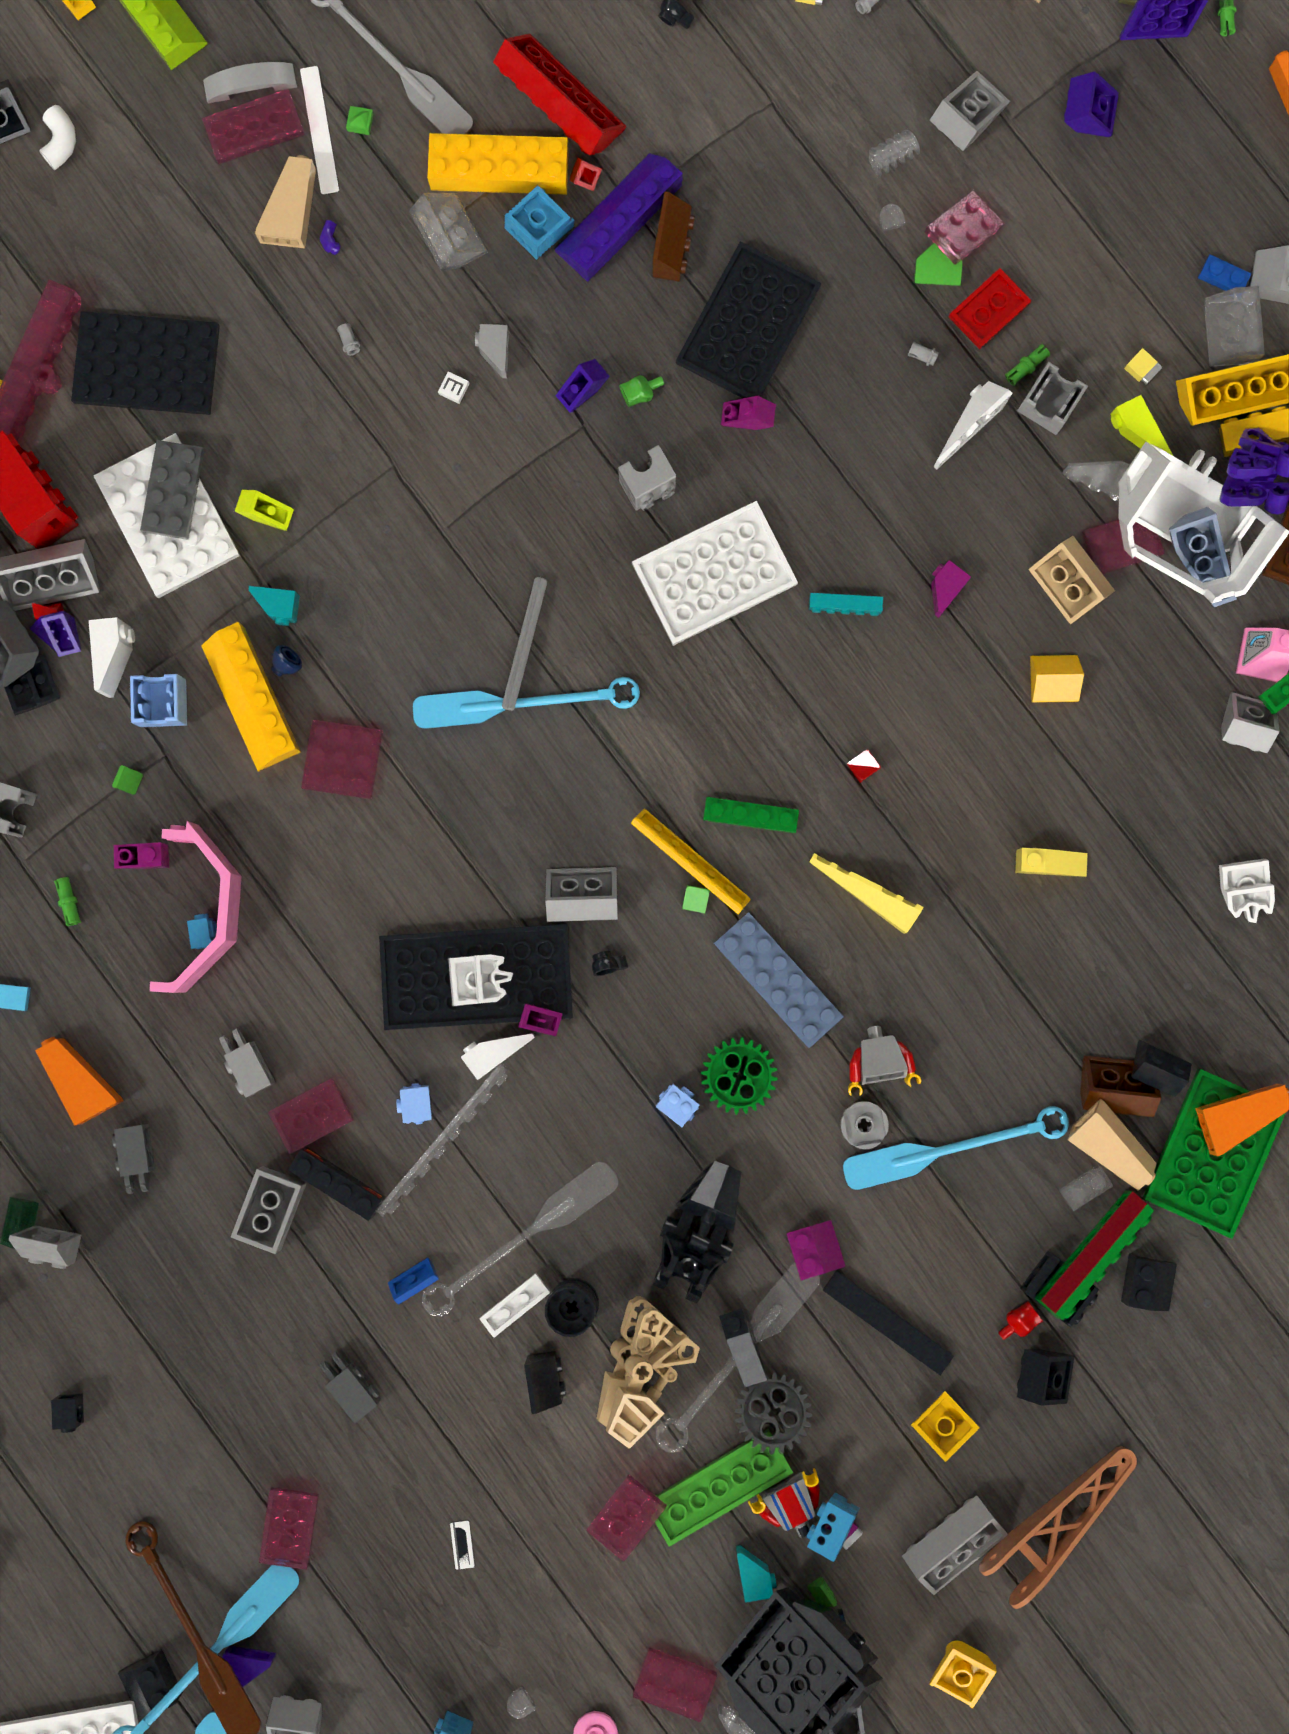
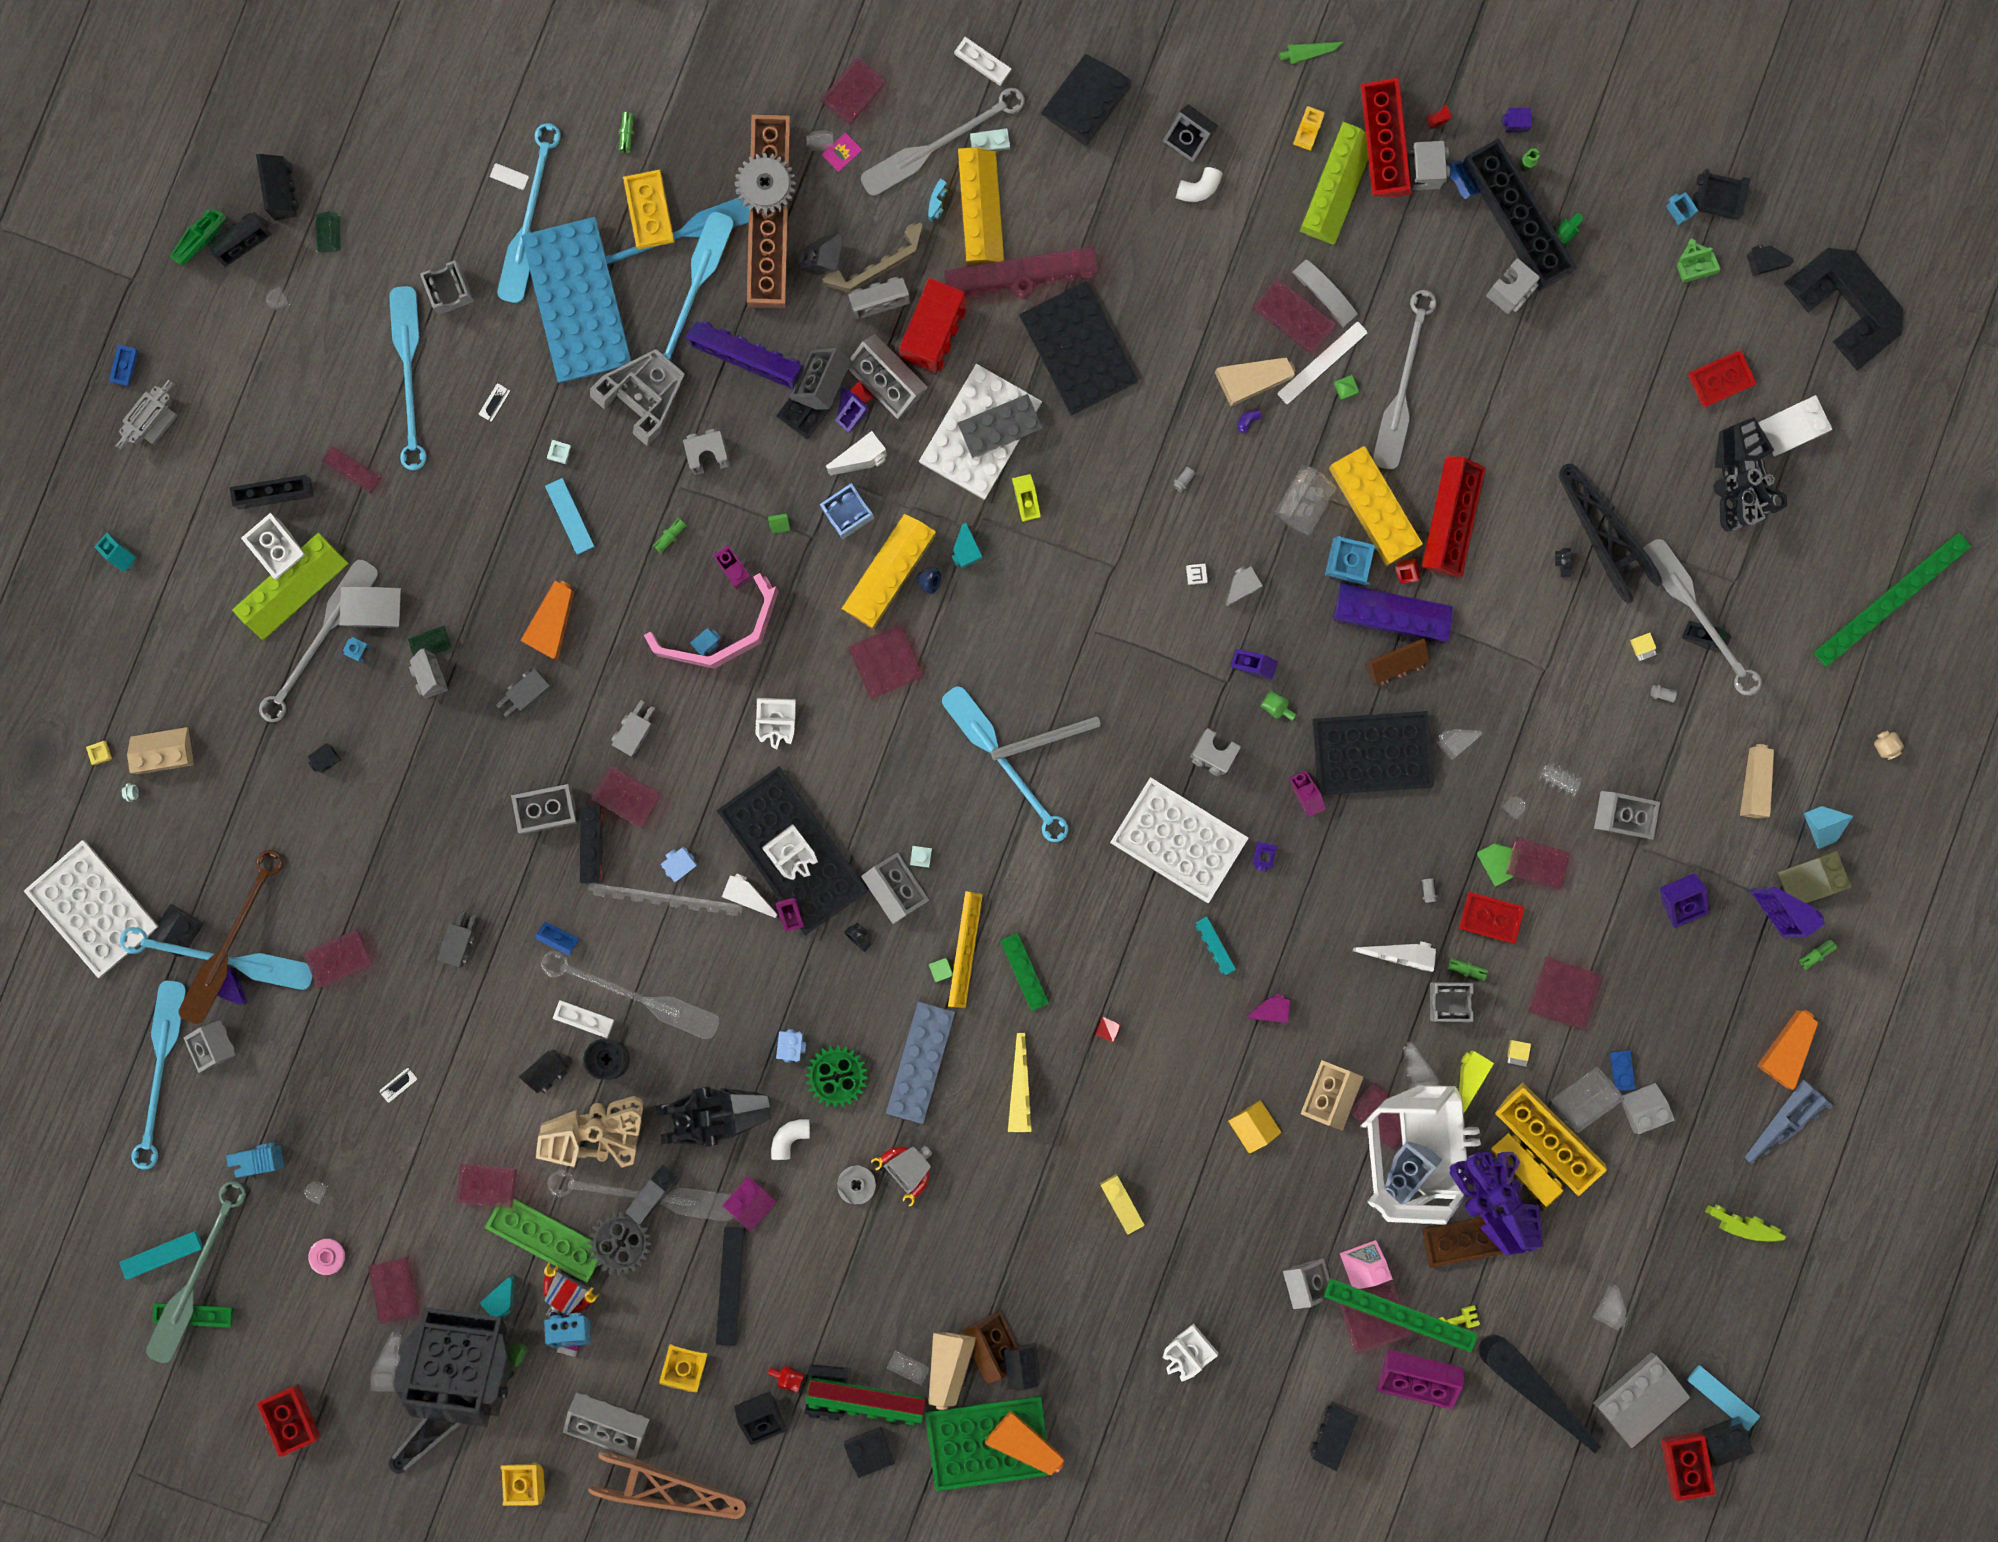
camera: 50 degrees right, 0 degrees up
(329, 910) = (775, 720): none -> white plate
(566, 847) = (921, 856): none -> light aqua plate
(768, 1165) = (786, 1136): none -> white cylinder
(784, 497) = (1264, 856): none -> dark purple window
(789, 231) = (1456, 741): none -> clear slope
(909, 1158) = (852, 1231): medium azure piece -> none
(1111, 283) = (1565, 993): none -> clear pink plate

